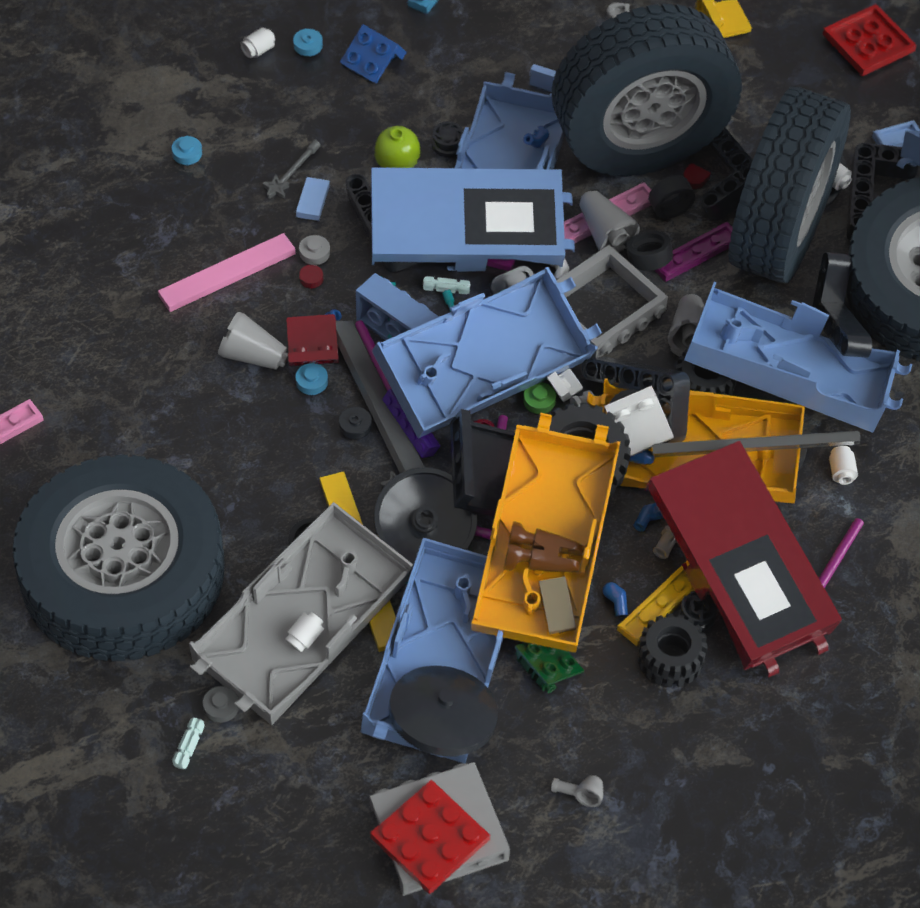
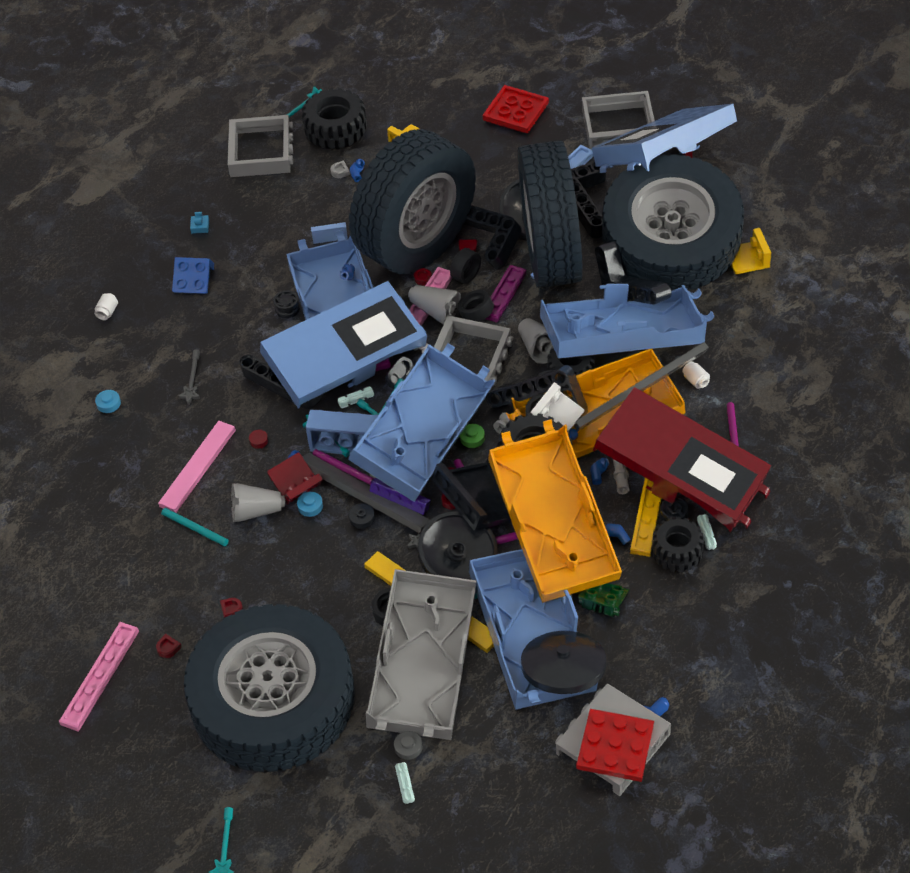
camera: 25 degrees left, 5 degrees down
(58, 453) = (167, 646): none -> dark red tile
(151, 447) = (230, 606): none -> dark red tile
(177, 338) = (195, 527): none -> teal bar
(305, 631) = (434, 664): white brick -> none
(307, 42) = (141, 289): dark azure wheel -> none
(312, 198) = (221, 388): light blue tile -> none
(314, 250) = (248, 420): light grey wheel -> none
(397, 148) = (256, 327): lime cylinder -> none
(513, 823) = (659, 706): none -> blue arm
(545, 551) = (559, 522): reddish brown piece -> none
(557, 605) = (590, 553): dark tan tile -> none
(565, 384) = (483, 418): white bracket -> none
(588, 792) = (690, 663): light grey bar -> none
(619, 184) = (422, 276): none -> dark red tile
(719, 655) = (706, 529): none -> light aqua axle

